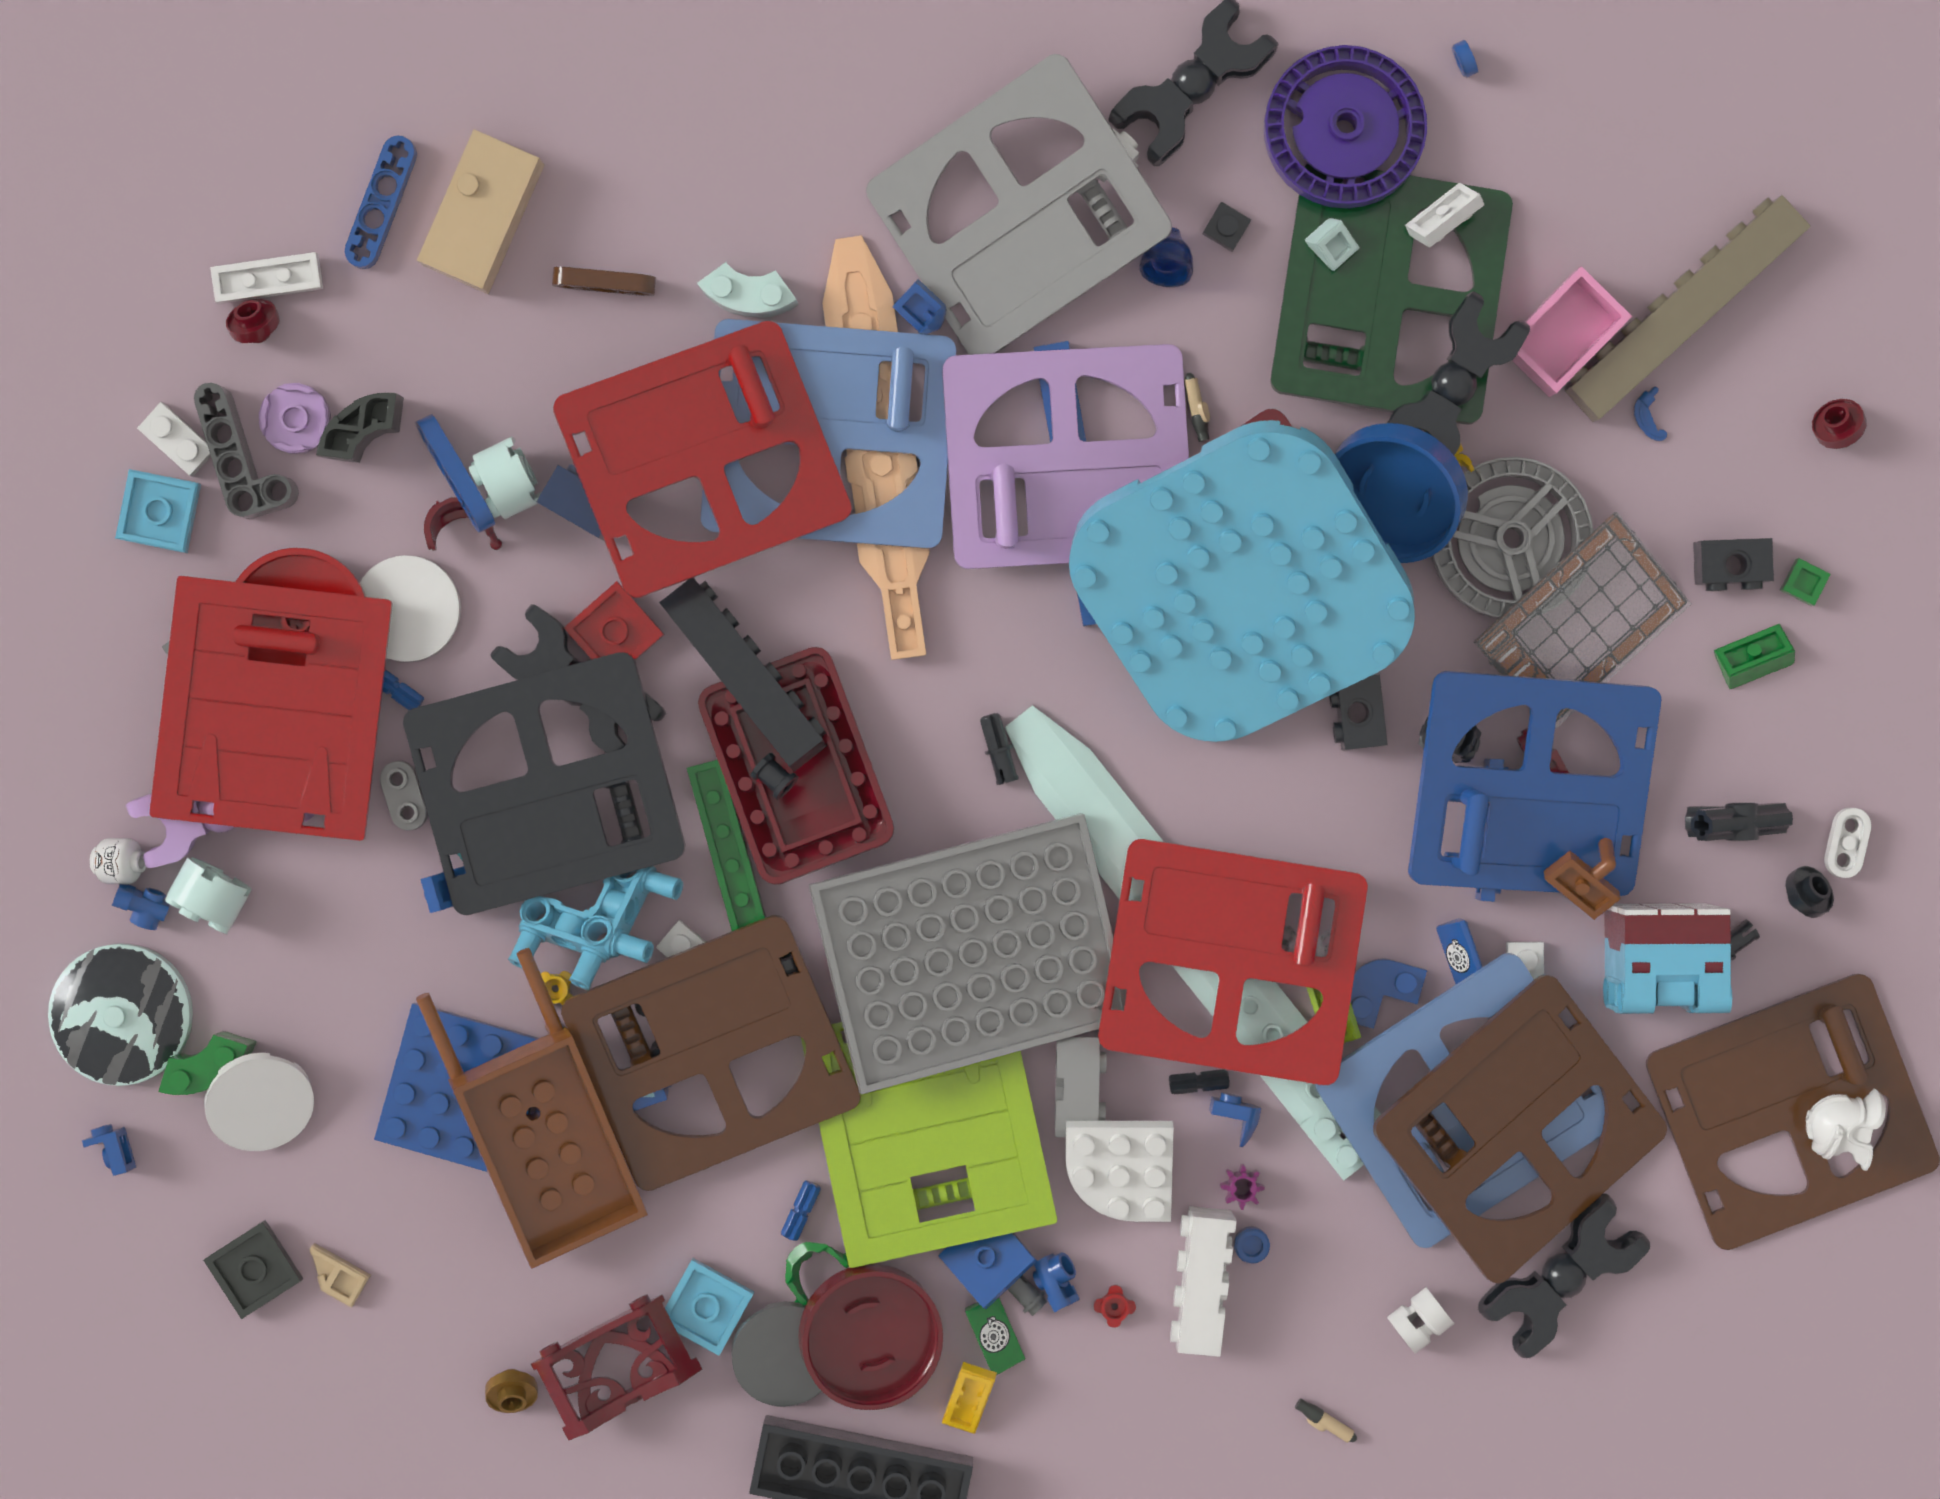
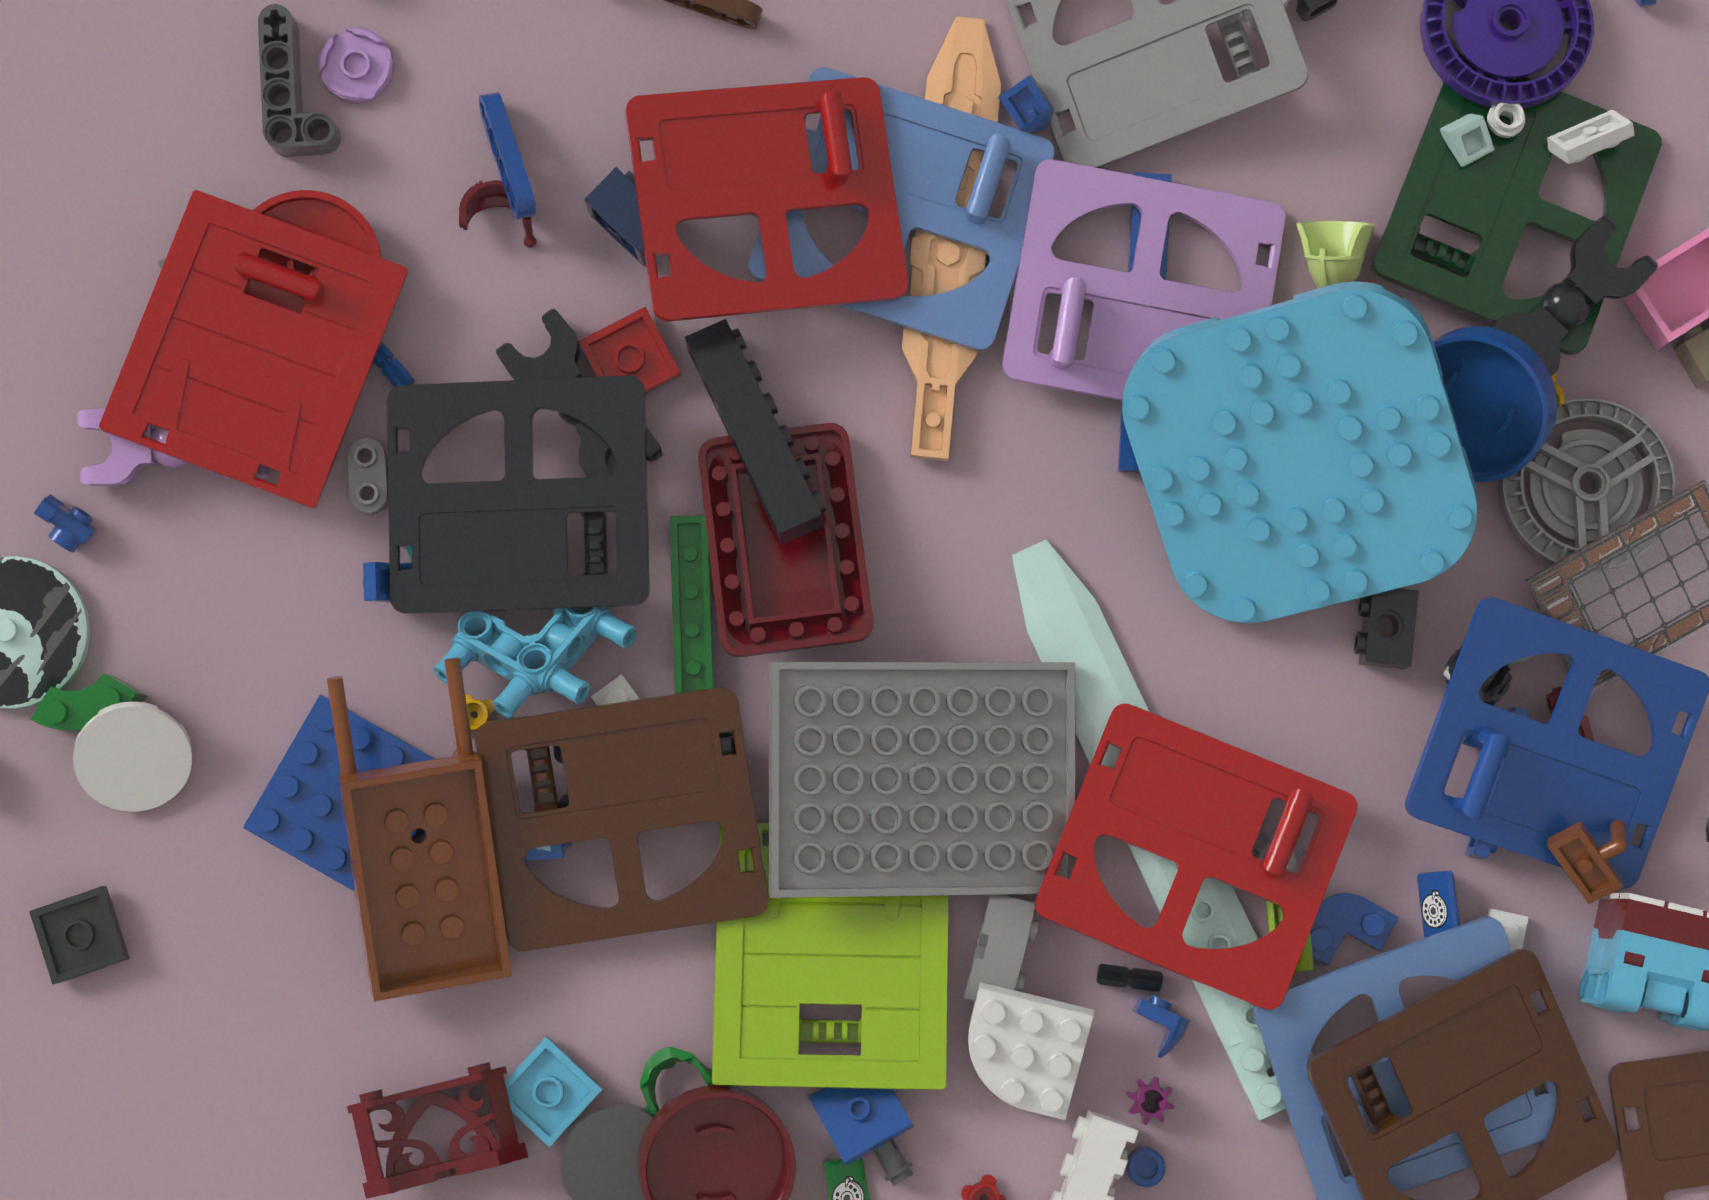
camera: 10 degrees right, 5 degrees down
(117, 861) = (52, 471): white head -> none
(158, 511) = (191, 124): medium azure plate -> none
(175, 439) = (229, 57): white plate -> none
(208, 894) = (137, 526): light aqua brick -> none
(338, 1276) = (167, 965): tan tile -> none
(359, 424) = (420, 85): pearl dark grey brick -> none
(423, 607) = (438, 286): white tile -> none
(506, 478) = (558, 173): light aqua brick -> none
(511, 1391) = (318, 1132): pearl gold plate -> none
(748, 295) = (853, 48): light aqua brick -> none
(774, 776) = (760, 542): black bush -> none
(798, 1216) = (678, 1008): blue piece -> none
(998, 748) = (1000, 575): black axle -> none
(1053, 1276) = (926, 1148): blue plate -> none
(1168, 262) = (1293, 118): clear blue helmet -> none
(1199, 410) = (1289, 274): tan piece -> none
(1226, 226) = (1361, 99): black plate -> none
(1233, 377) = (1334, 249): none -> yellowish green helmet
(1371, 209) = (1513, 112): none -> white plate

